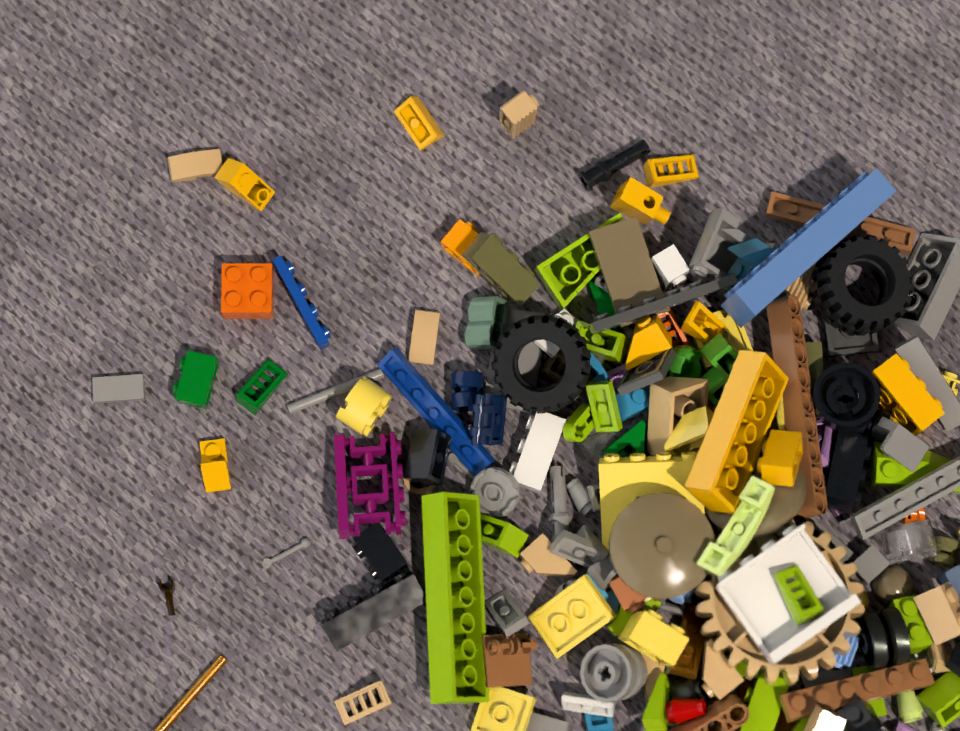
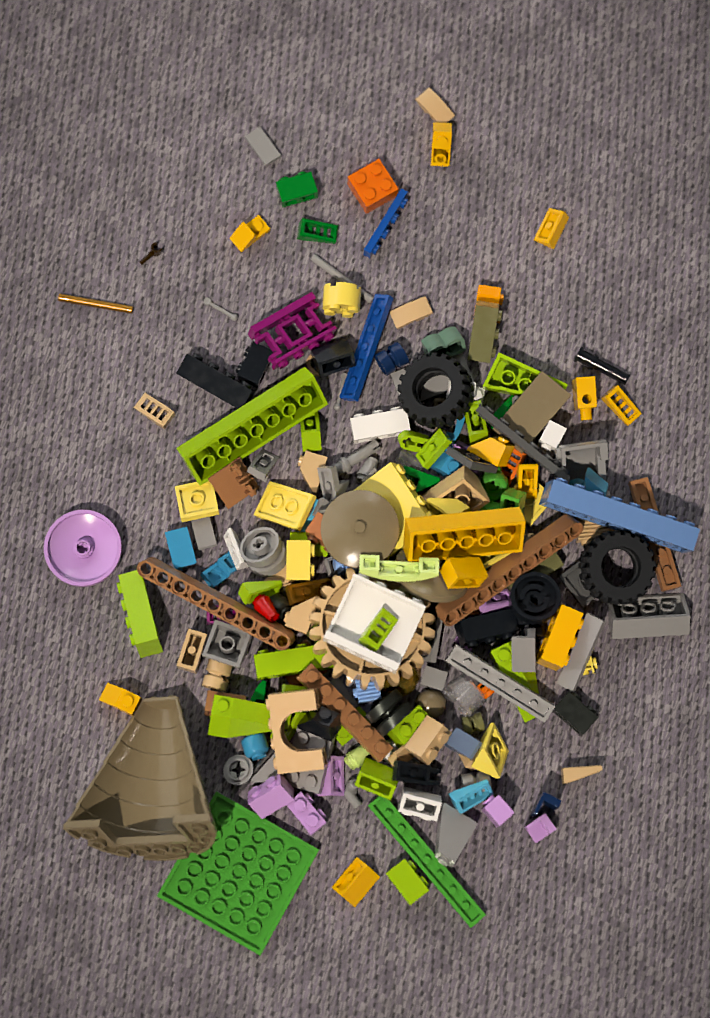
camera: 60 degrees right, 0 degrees up
(488, 419) = (382, 385): dark blue plate -> none
(496, 490) = (337, 413): light grey tile -> none
(518, 113) = (595, 284): tan brick -> none

